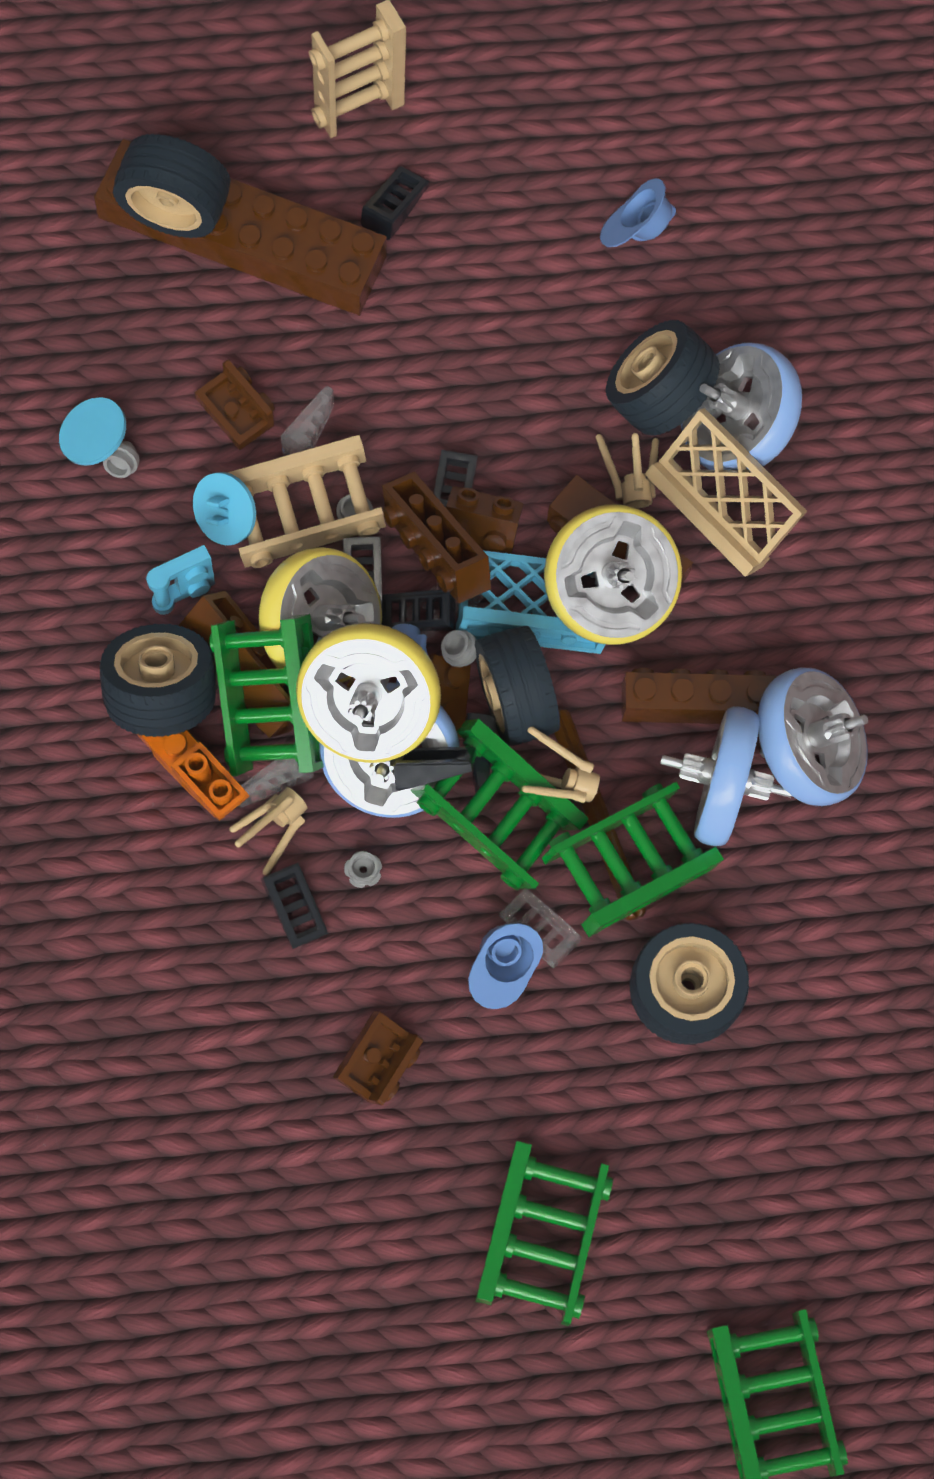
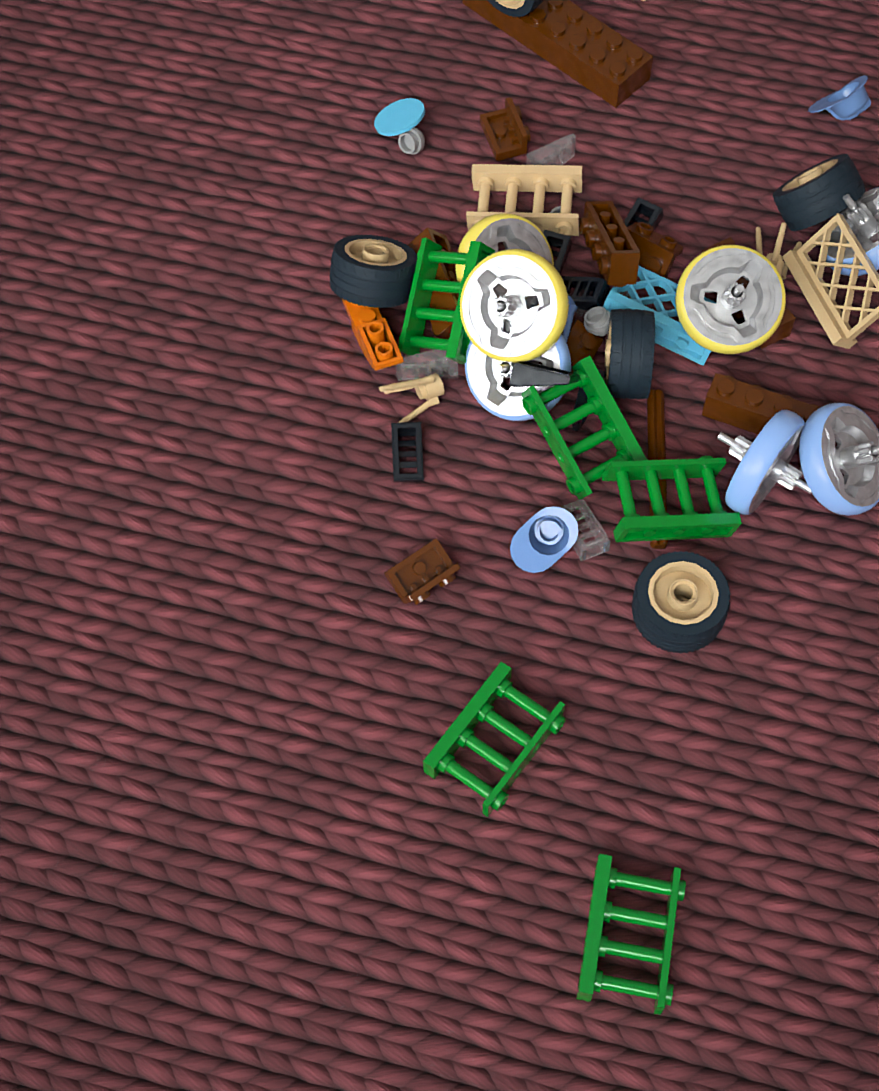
camera: 30 degrees right, 10 degrees down
(191, 575) = (427, 213): medium azure plate -> none
(224, 508) = (468, 186): medium azure piece -> none
(359, 860) = (467, 438): light grey plate -> none
(383, 220) = (666, 46): black slope -> none
(577, 783) = (649, 435): tan plant -> none

